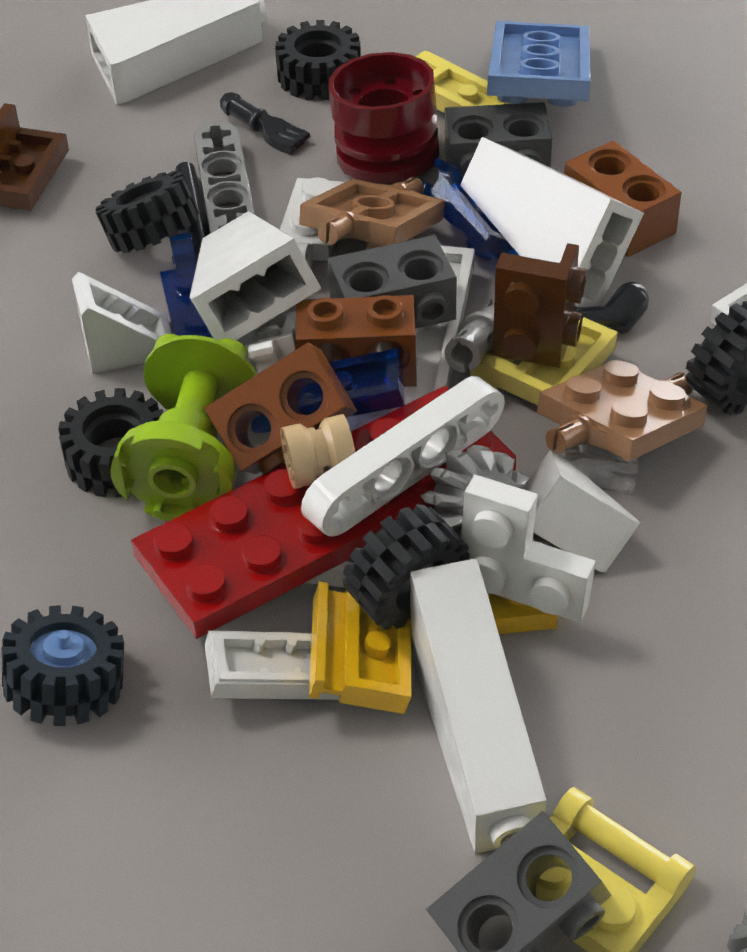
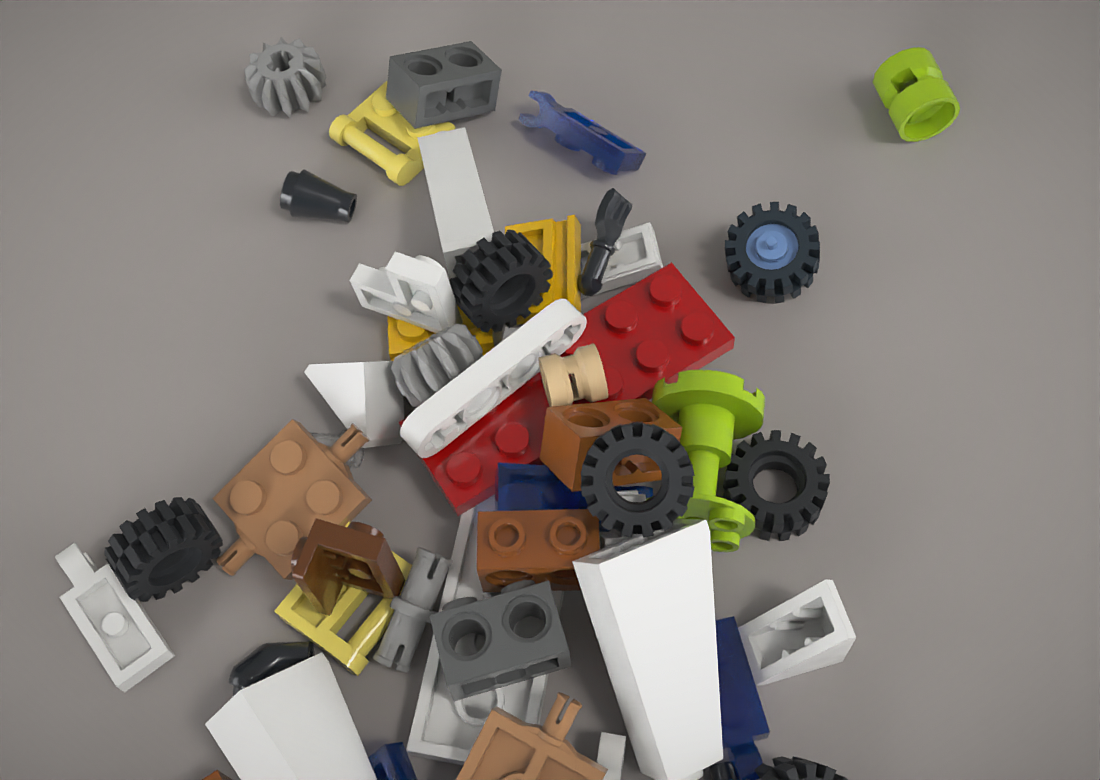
camera: 175 degrees left, 15 degrees up
(253, 320) = (637, 516): none -> black tyre
(280, 647) = (609, 225): none -> black piece
(300, 849) = (579, 132): none -> clear blue plate
(686, 758) = (314, 197): none -> black cone

